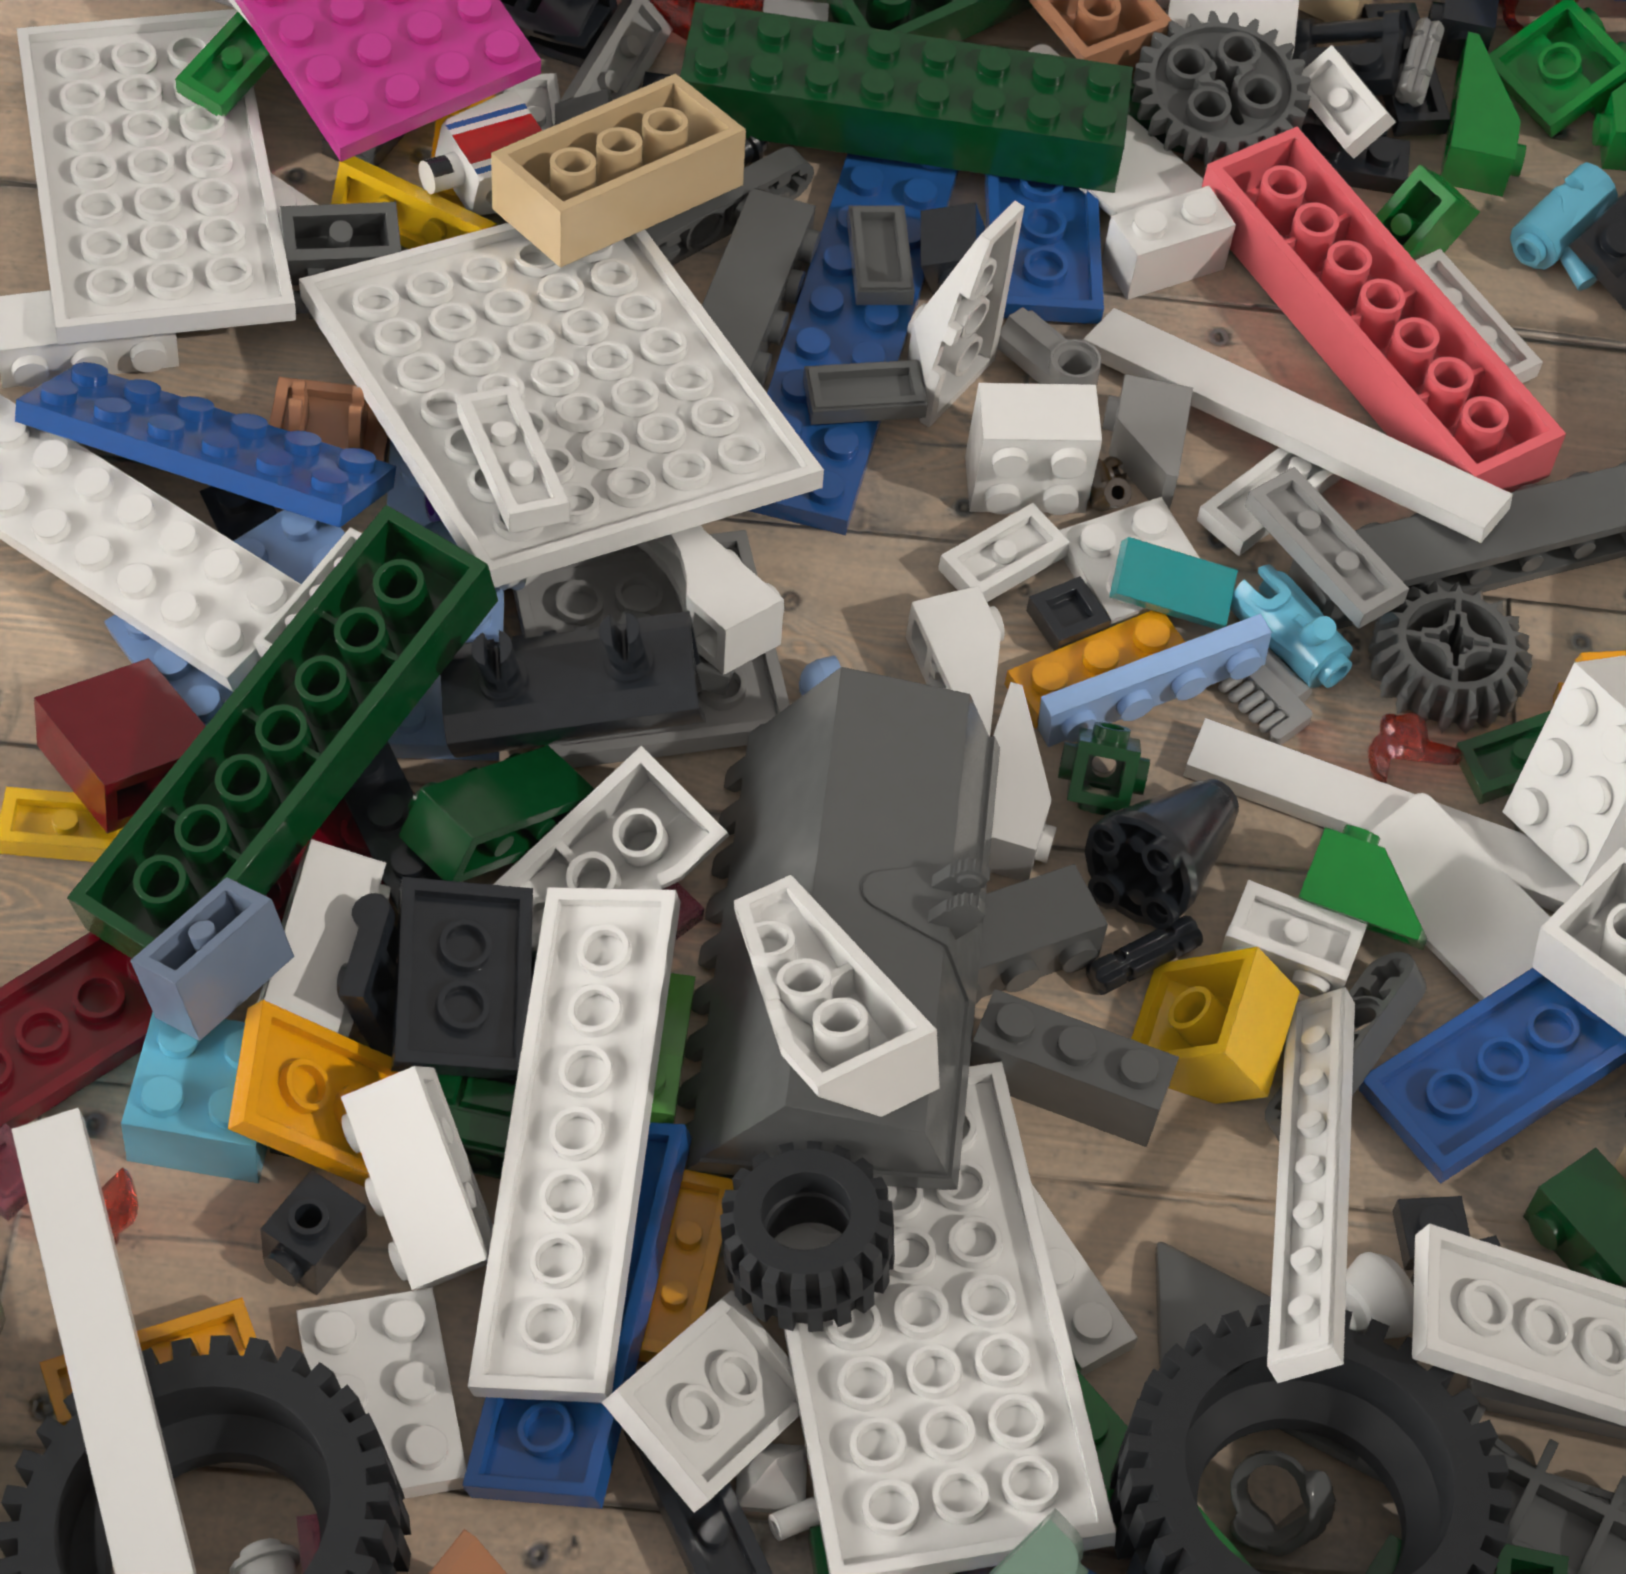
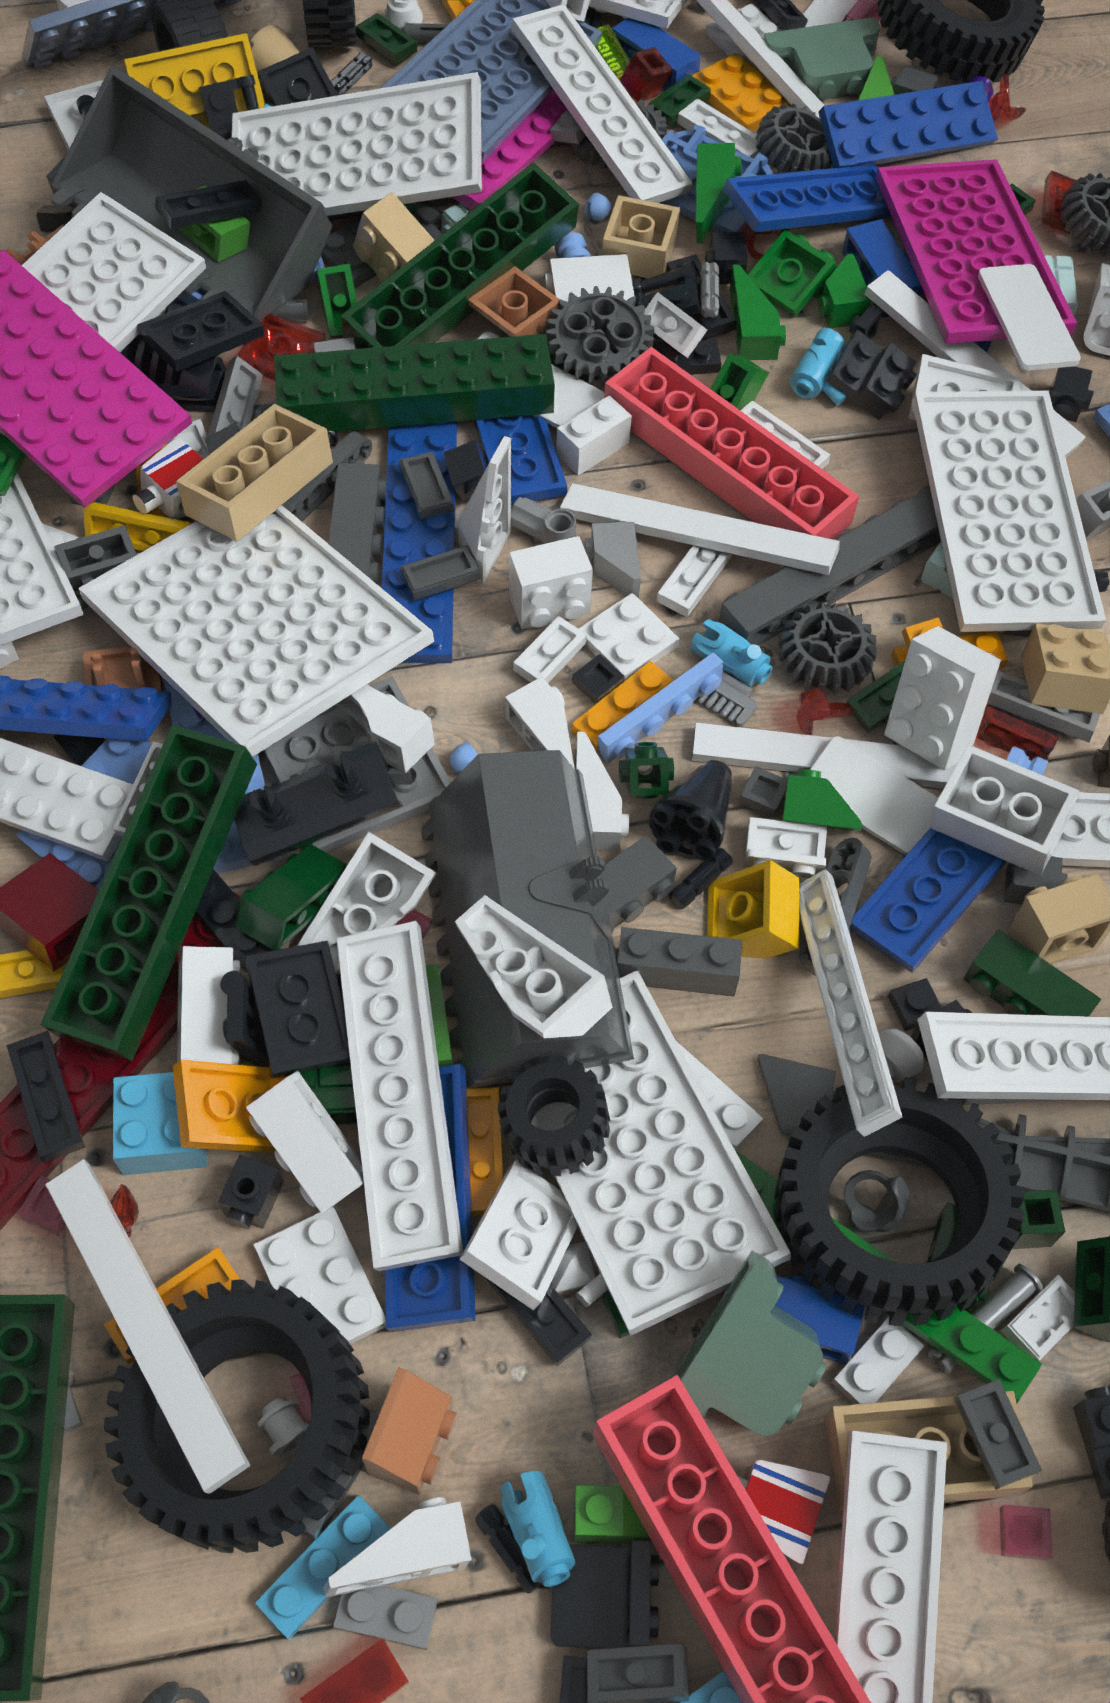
camera: 10 degrees left, 5 degrees up
(45, 1009) = (45, 1097): none -> black plate
(212, 958) = (142, 1041): sand blue brick -> none
(513, 459) = (242, 672): white plate -> none
(1109, 486) = (600, 594): dark brown arm -> none
(1173, 583) = (655, 645): teal tile -> none
(1281, 849) = (764, 791): none -> dark grey plate
(1326, 547) = (740, 601): light grey plate -> none

